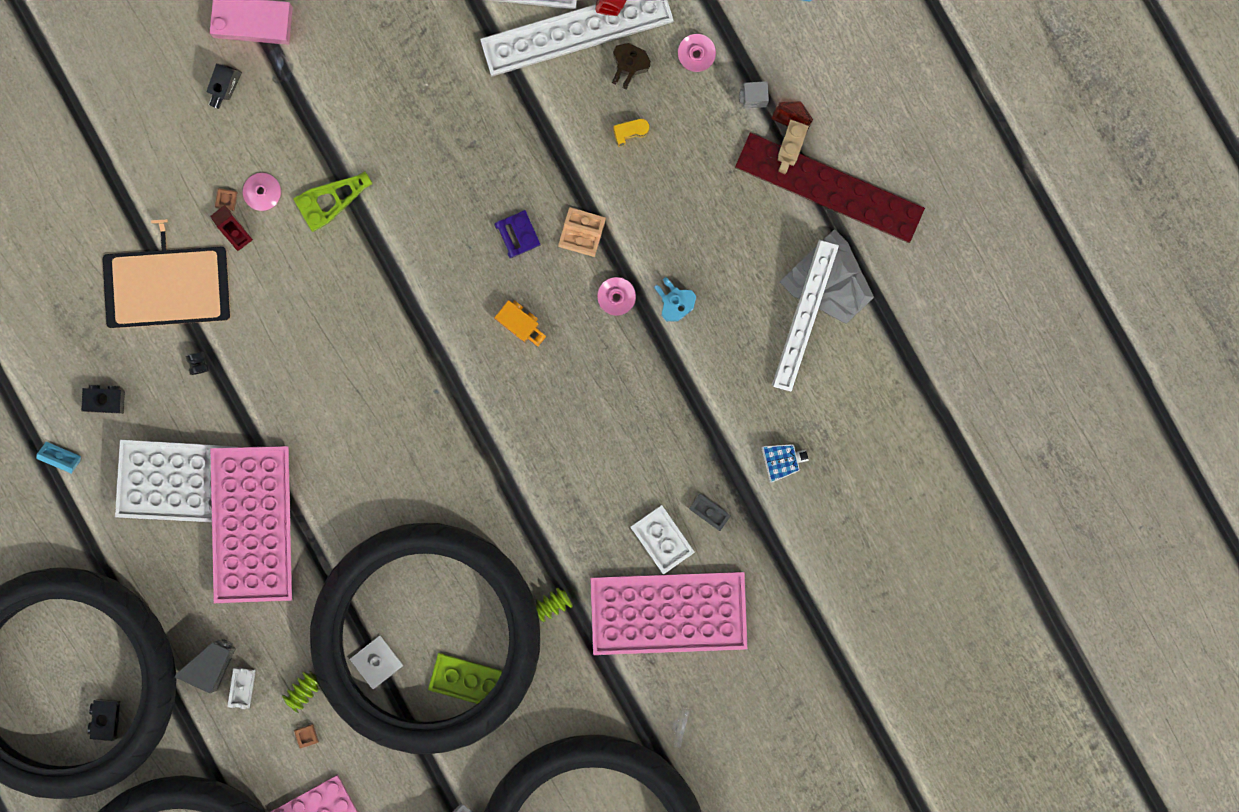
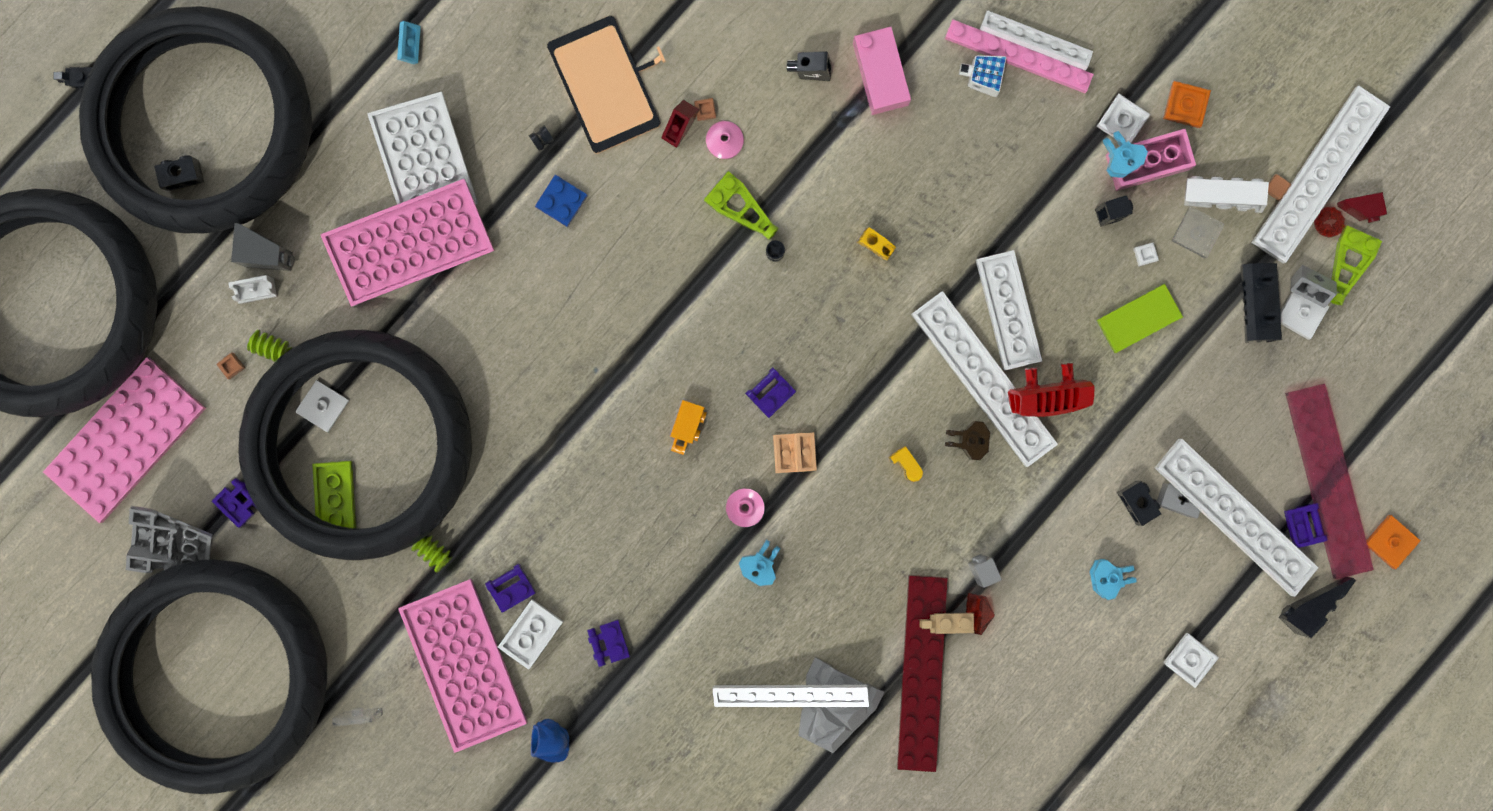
camera: 70 degrees right, 0 degrees up
(114, 402) = (469, 55): black brick -> none
(263, 366) = (561, 201): none -> blue plate
(385, 181) = (777, 248): none -> black wheel
(413, 84) = (876, 243): none -> yellow leg
(442, 778) = (232, 506): none -> dark purple plate
(619, 543) = (513, 594): none -> dark purple plate
(697, 464) = (614, 642): none -> dark purple plate
(698, 43) = (1013, 496): bright pink dish -> none
(709, 512) = (572, 670): dark grey plate -> none
(768, 555) = (549, 741): none -> blue helmet
(782, 460) = (645, 722): torso -> none

